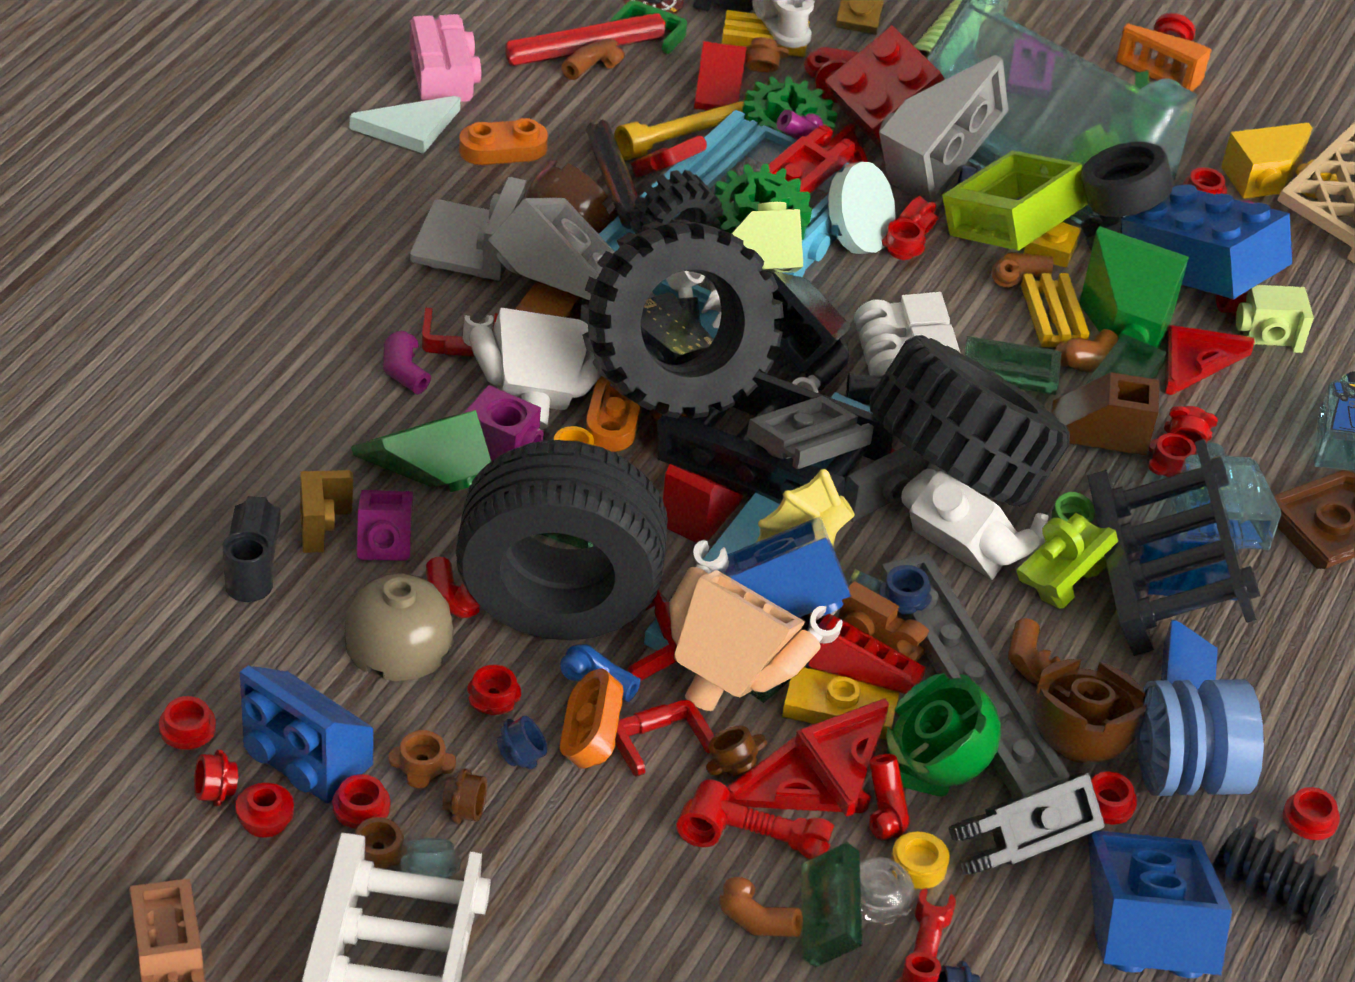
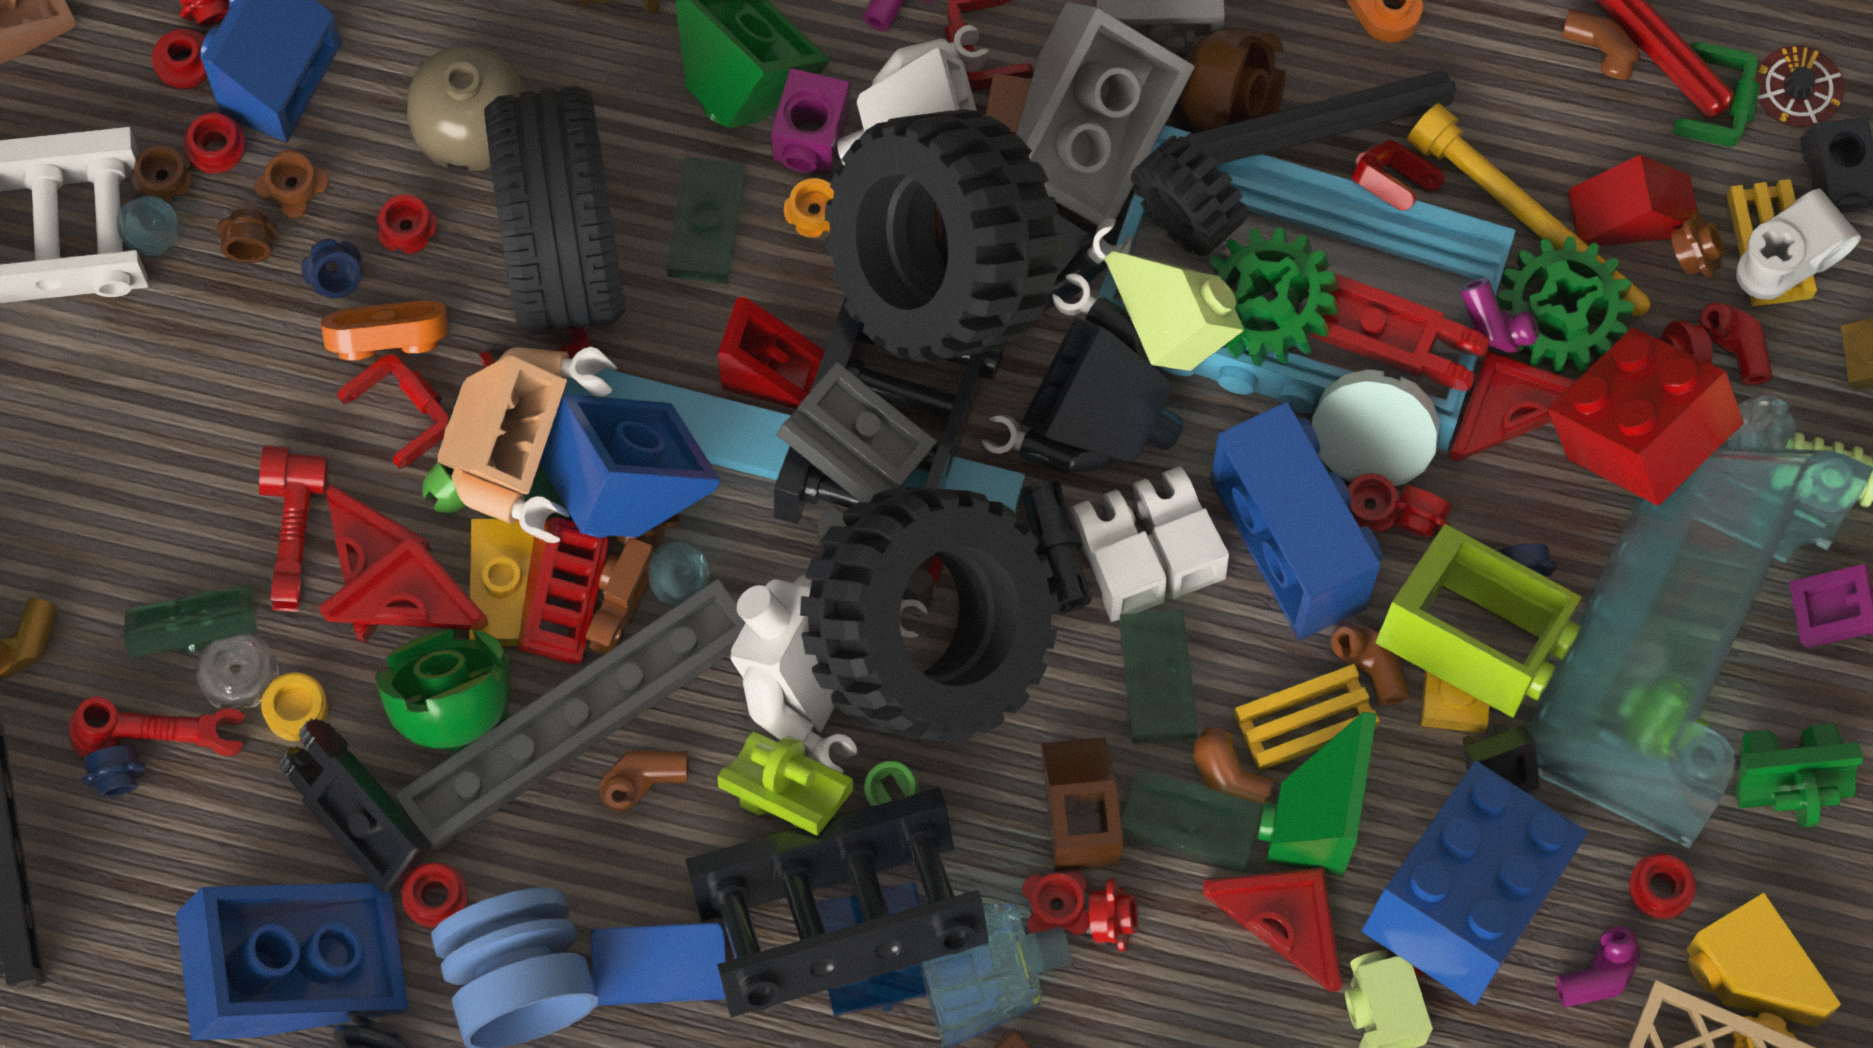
camera: 80 degrees right, 25 degrees up
(384, 525) = (624, 43): magenta bracket -> none
(582, 659) = (470, 319): blue arm -> none
(734, 751) = (382, 482): reddish brown plate -> none
(751, 712) = (439, 484): none -> bright green hinge
(753, 917) = (164, 547): dark orange arm -> none
(806, 503) = (736, 496): light yellow arm -> none
(892, 812) = (365, 658): red arm -> none
(907, 588) = (652, 593): dark blue plate -> none
(926, 250) = (1295, 520): none -> blue brick
(943, 128) = (1545, 491): light grey slope -> none
(1088, 711) = (522, 832): reddish brown cylinder -> none
(1127, 179) = (1515, 778): black tyre -> none

